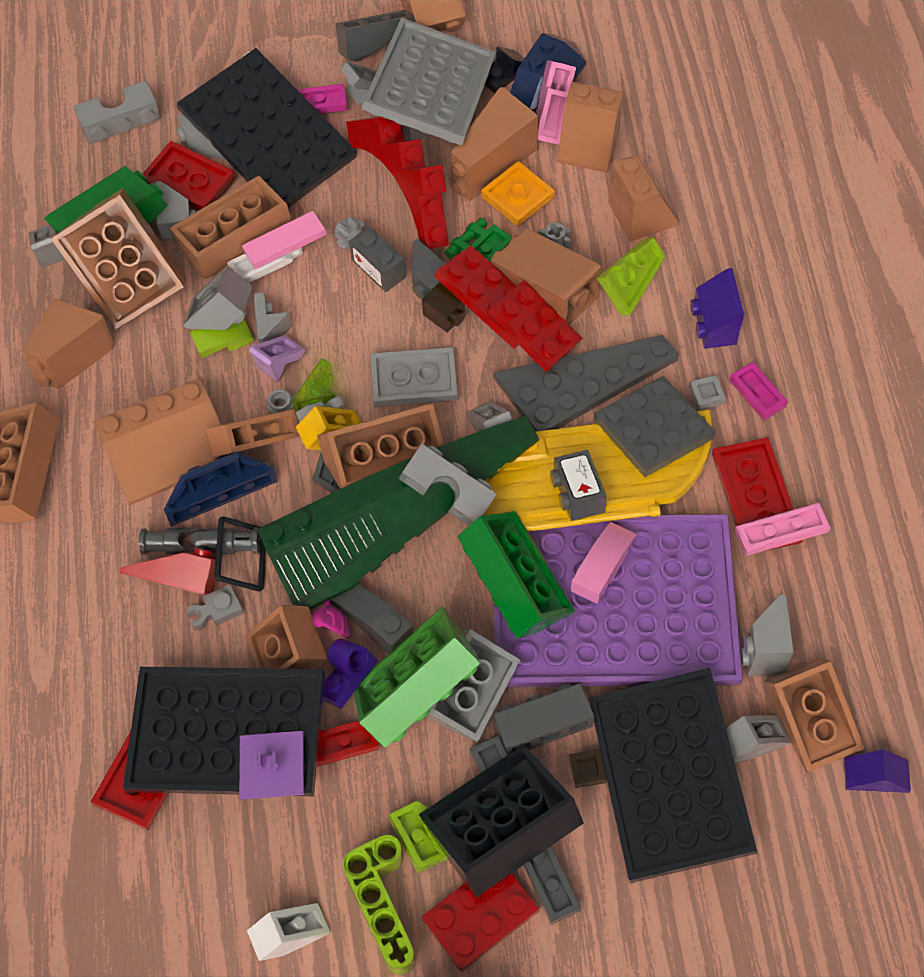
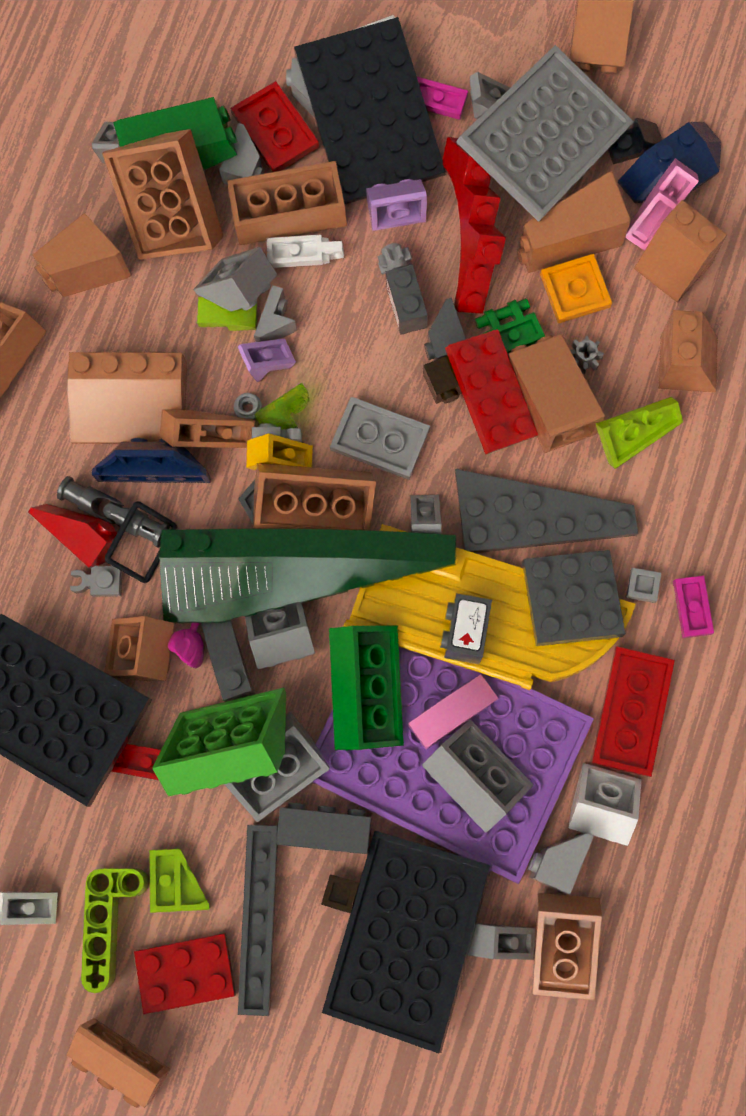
camera: 30 degrees right, 15 degrees up
(103, 122) = (259, 32): light grey arch -> none
(271, 765) = (65, 764): medium lavender piece -> none
(284, 240) = (327, 240): bright pink tile -> none
(330, 190) = (397, 204): none -> lavender slope
(350, 666) = (184, 698): dark purple plate -> none
(367, 34) = (517, 44): dark grey slope -> none
(411, 573) = (279, 635): none -> light grey slope
(429, 467) = (332, 552): light grey arch -> none
(501, 819) = (237, 906): black slope -> none
(535, 325) = (514, 443): red plate -> none
(654, 603) = (477, 775): none -> light grey slope
(718, 311) = (697, 508): dark purple slope -> none
(776, 575) = (606, 804): none -> white slope
(782, 529) = (635, 759): bright pink tile -> none
(877, 772) = (592, 1028): dark purple slope -> none

